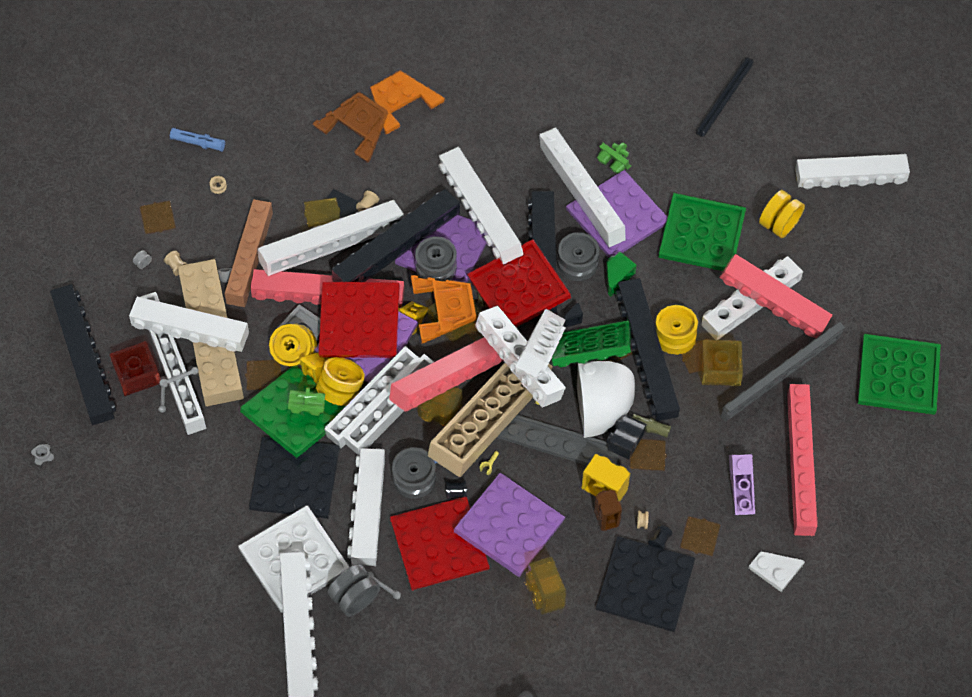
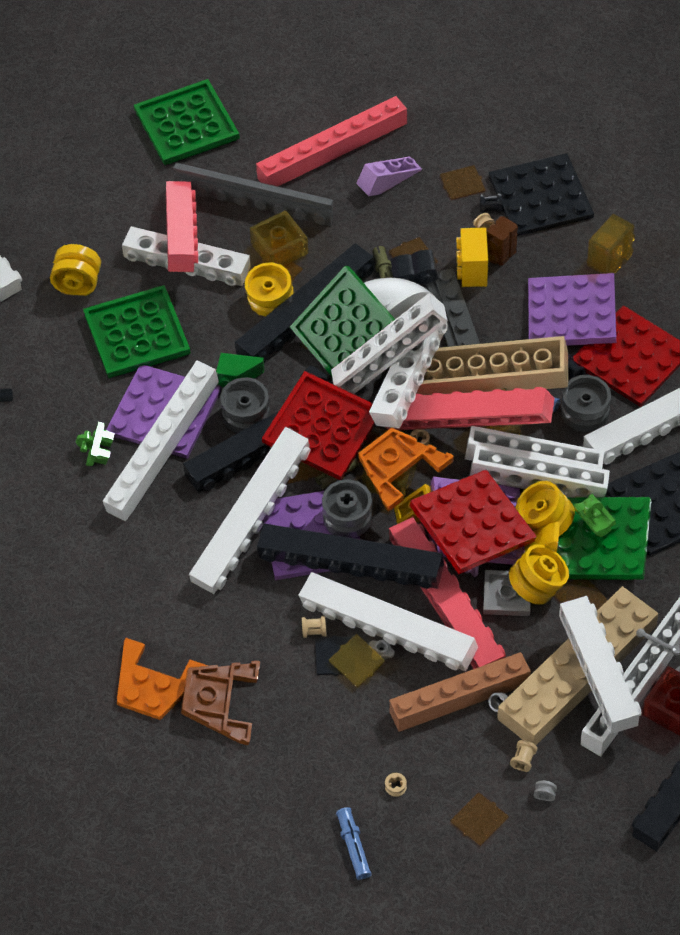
camera: 120 degrees left, 5 degrees down
(776, 569) = (450, 118): white wing -> none

